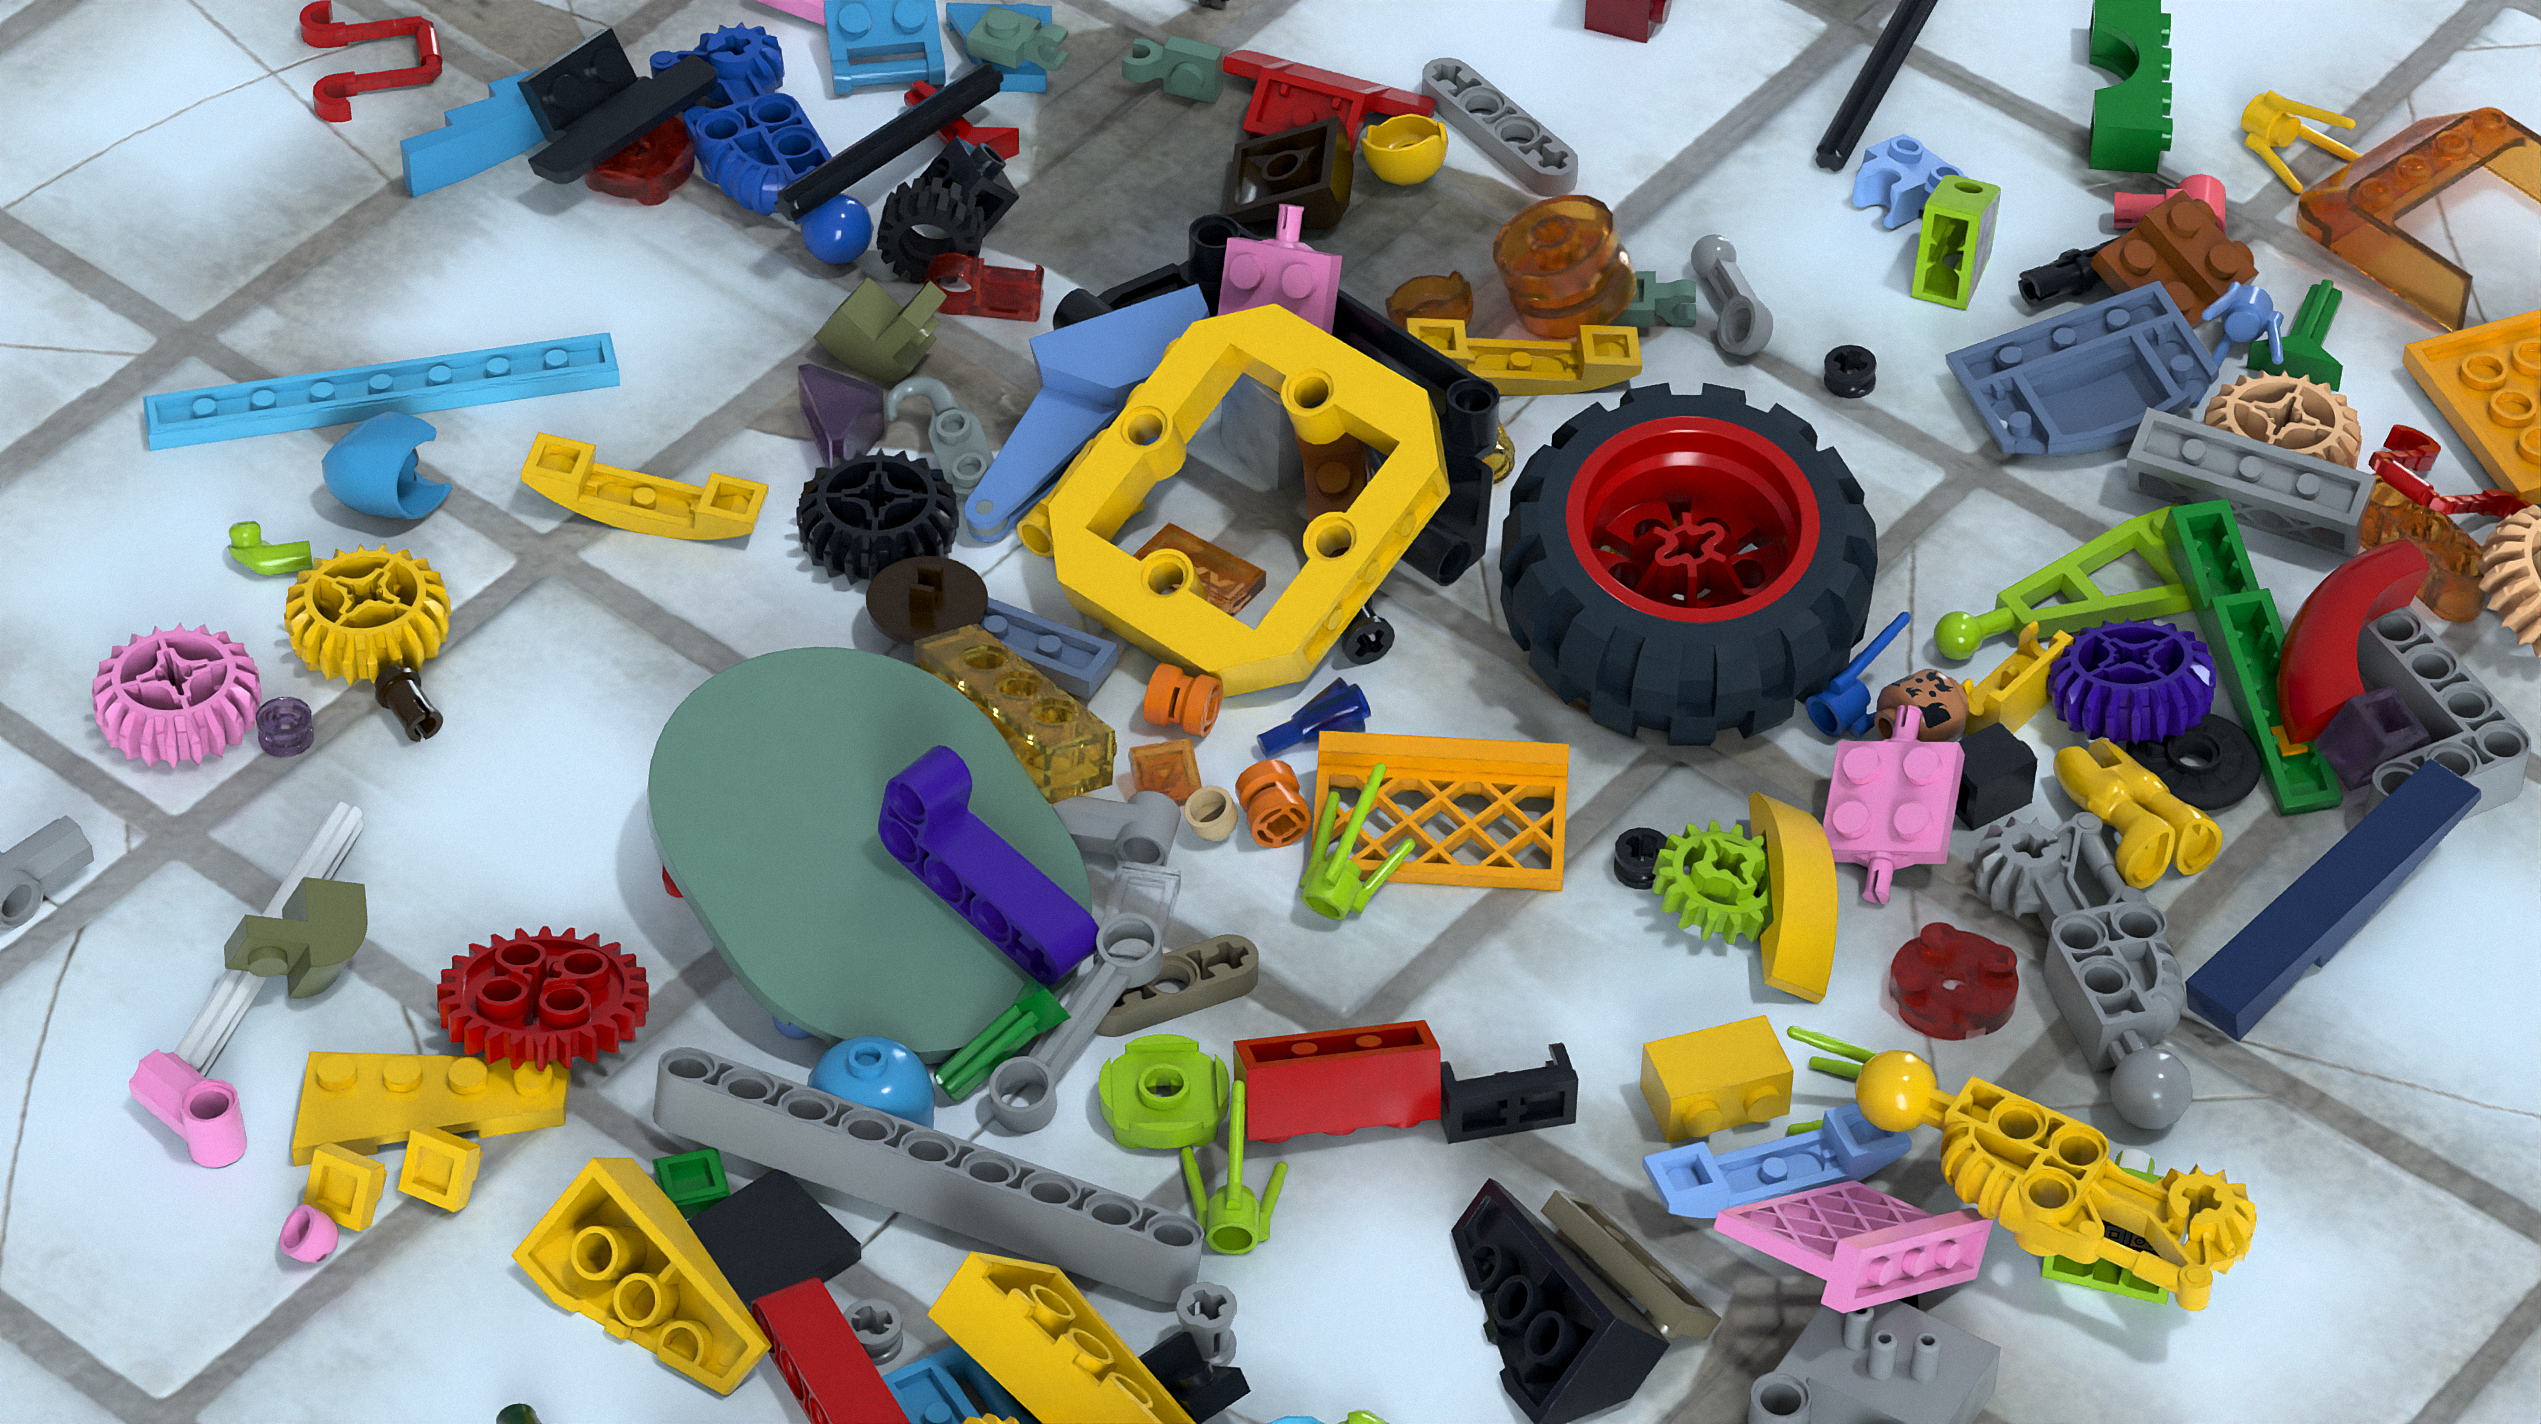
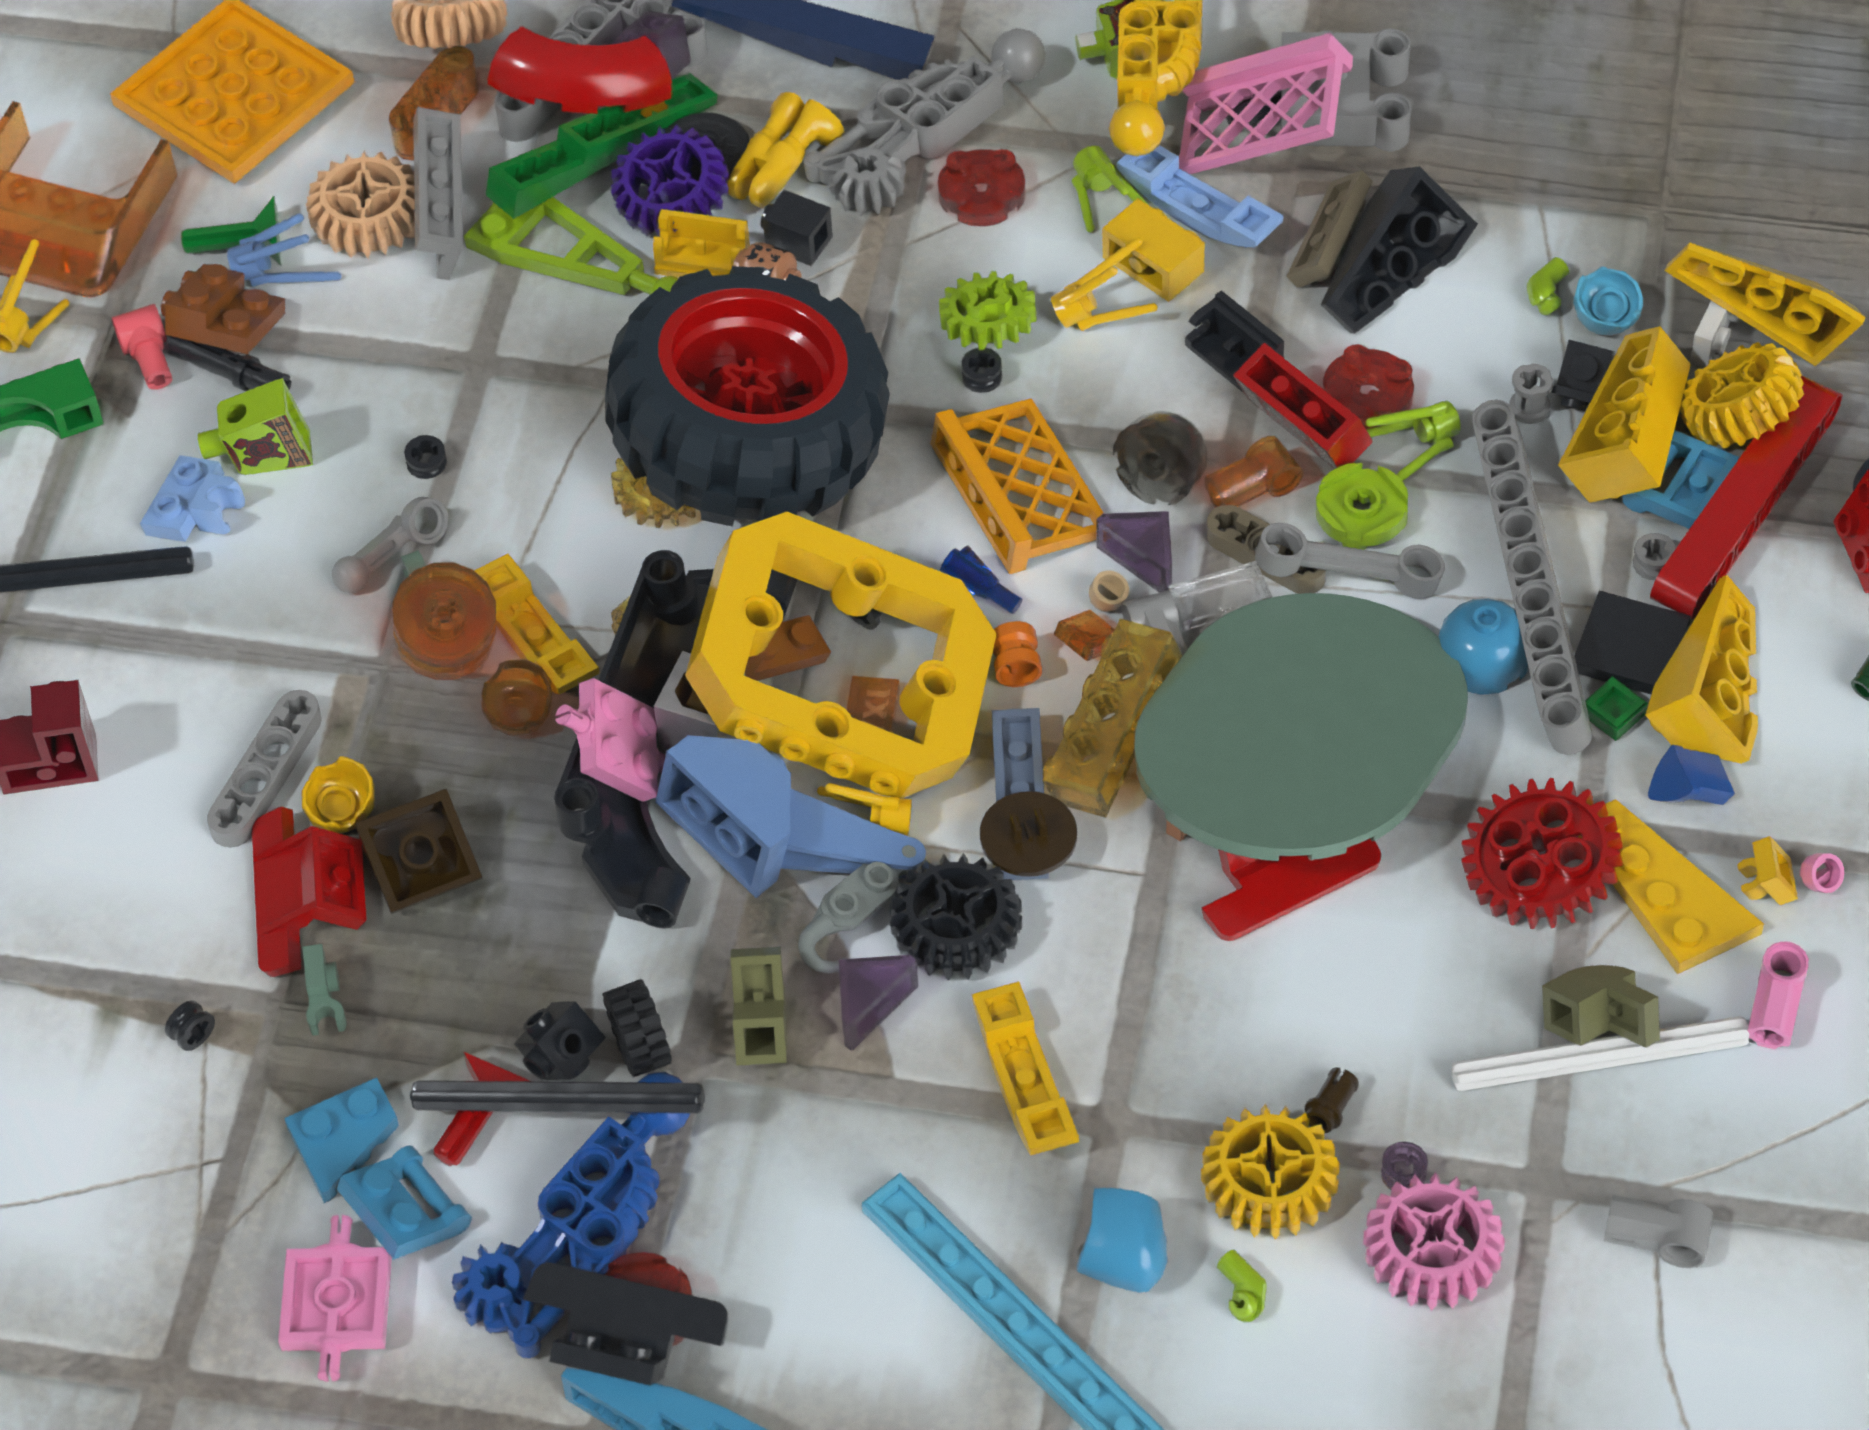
camera: 115 degrees left, 10 degrees up
(439, 1167) = (1717, 831): yellow tile -> none
(522, 1184) = (1690, 775): none -> blue tile
(978, 872) = (1288, 636): dark purple beam -> none
(994, 291) = (662, 982): clear red piece -> none
(1014, 37) = (364, 1103): sand green plate -> none
(1028, 1015) = (1388, 588): green piece -> none
(1246, 866) = (1138, 544): none -> clear purple slope
(1273, 803) = (1077, 562): orange wheel -> none
(1281, 995) = (1264, 470): none -> clear orange piece
(1334, 884) = (1124, 495): lime plant -> none
(1346, 1163) = (1370, 367): none -> clear red plate
(1364, 928) = (1161, 457): none -> clear smoke cylinder
(1675, 971) = (1077, 300): none -> yellow plant
(1804, 894) = (916, 297): yellow slope -> none
(1893, 802) = (862, 252): bright pink plate -> none
(2085, 374) = (368, 315): sand blue slope -> none
(2418, 452) = (364, 87): red piece -> none

